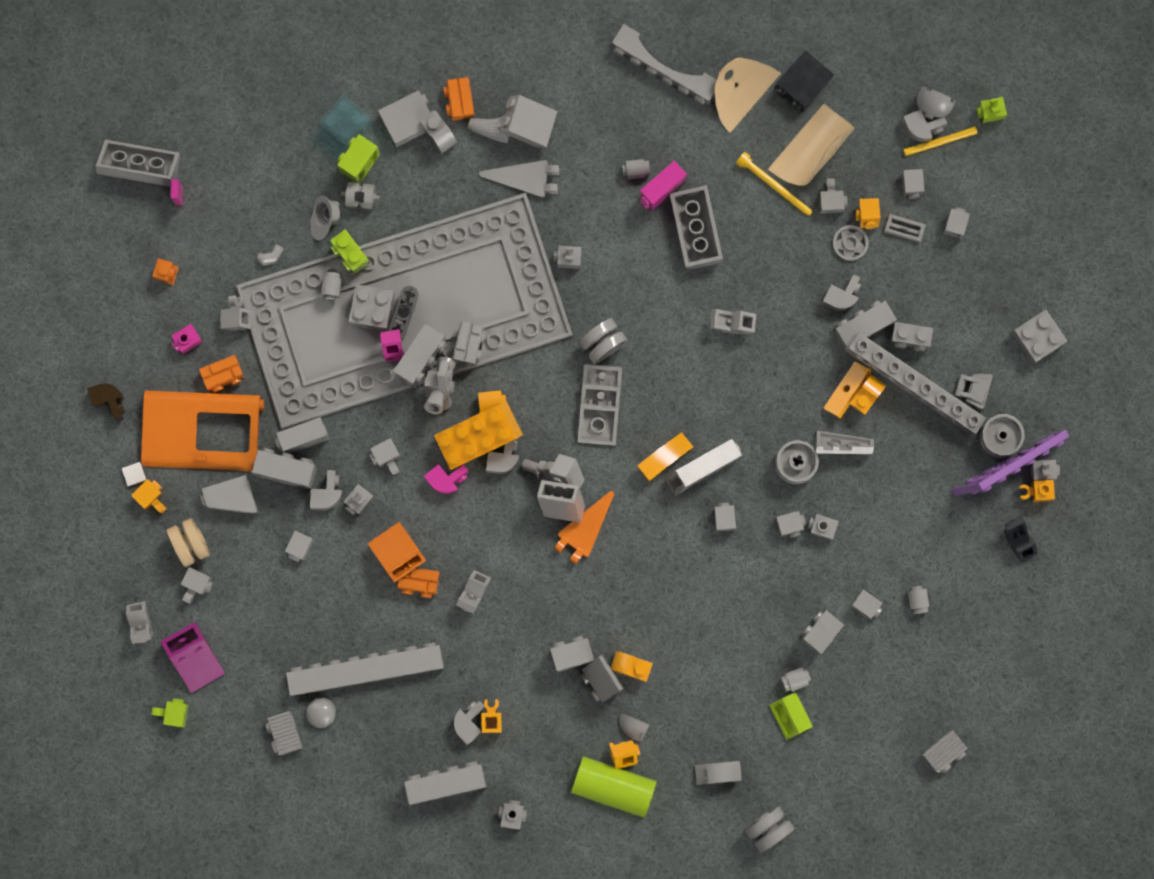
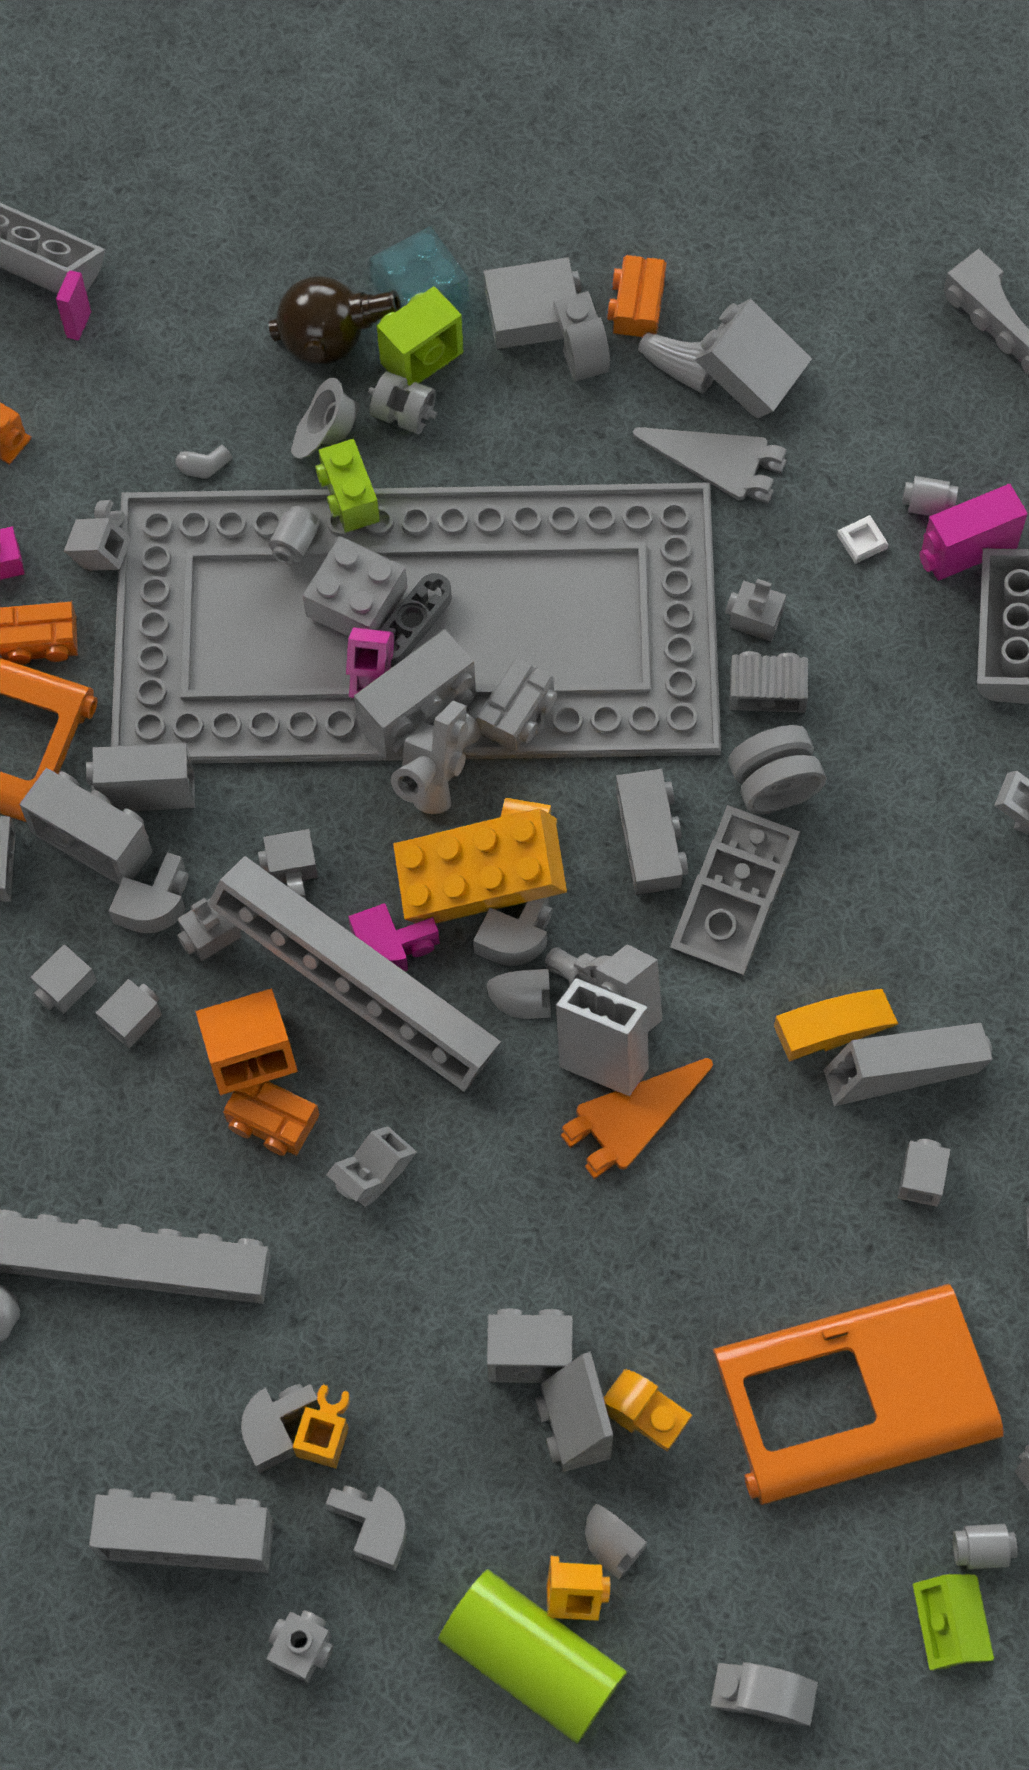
camera: 20 degrees right, 15 degrees down
(306, 160) = (324, 319): none -> dark brown piece
(336, 552) = (129, 1012): none -> light grey brick
(436, 504) = (353, 973): none -> light grey brick
(515, 487) = (522, 993): none -> light grey brick
(531, 752) = (383, 1524): none -> light grey brick
(551, 387) = (650, 831): none -> light grey brick
(585, 293) = (768, 682): none -> light grey brick
(609, 200) = (862, 539): none -> white tile
(746, 612) = (917, 1375): none -> orange piece

